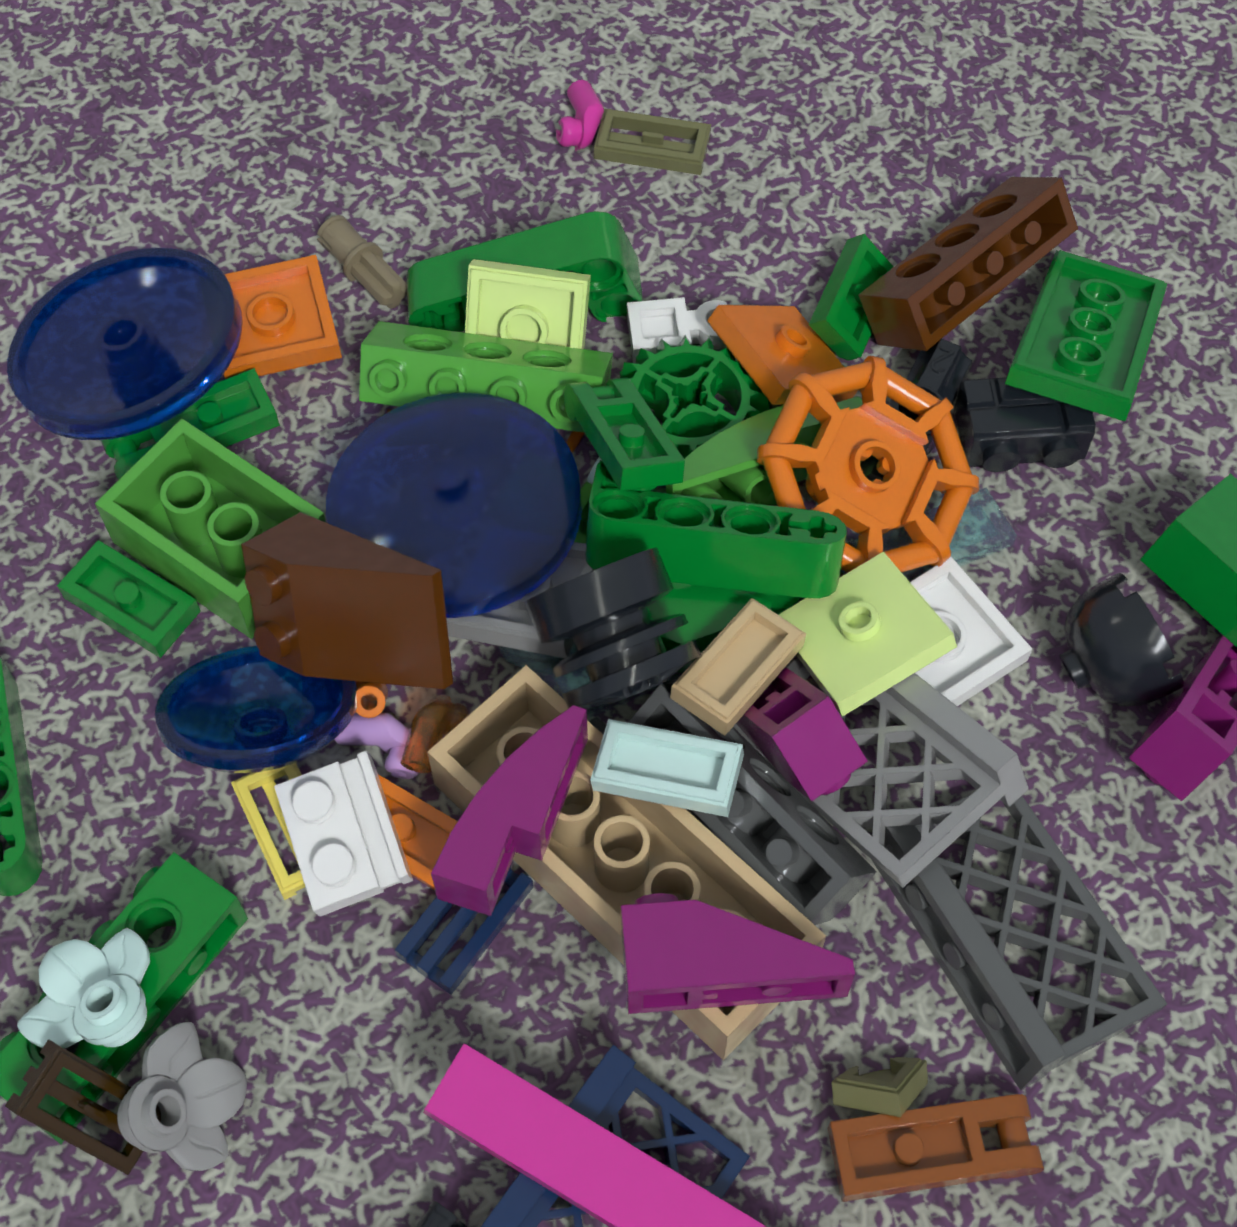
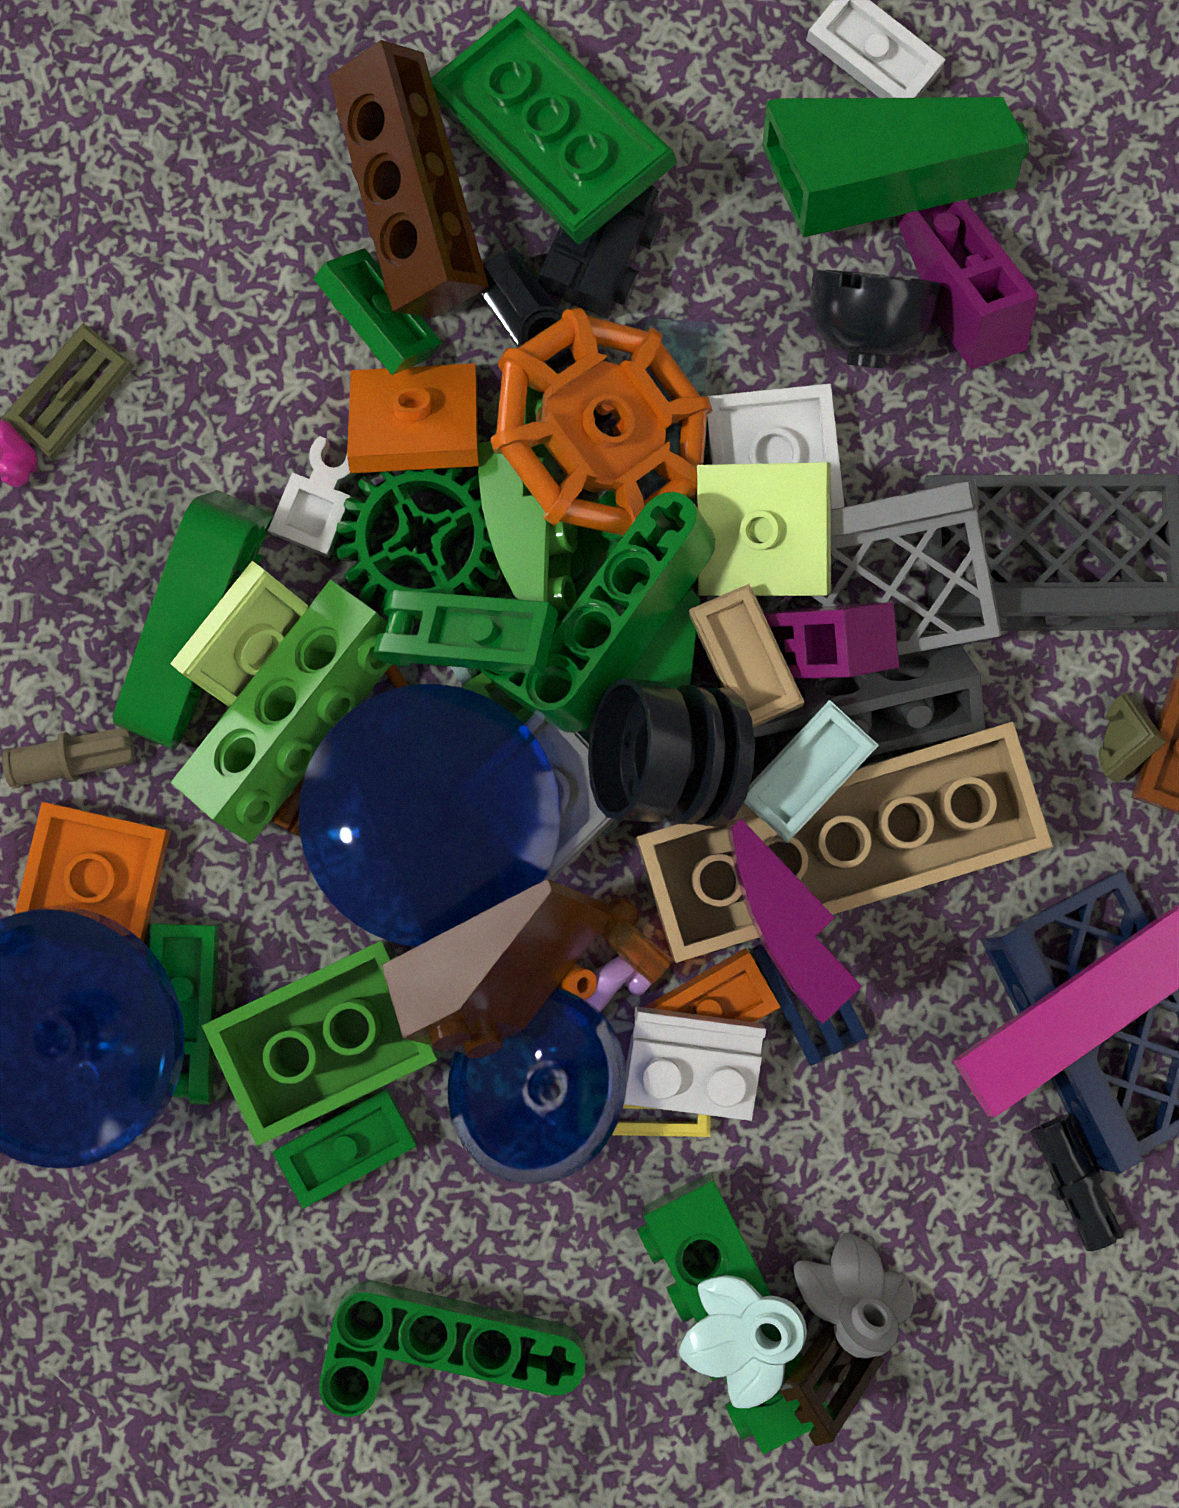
camera: 60 degrees left, 25 degrees up
(709, 958) = (995, 837): magenta slope -> none

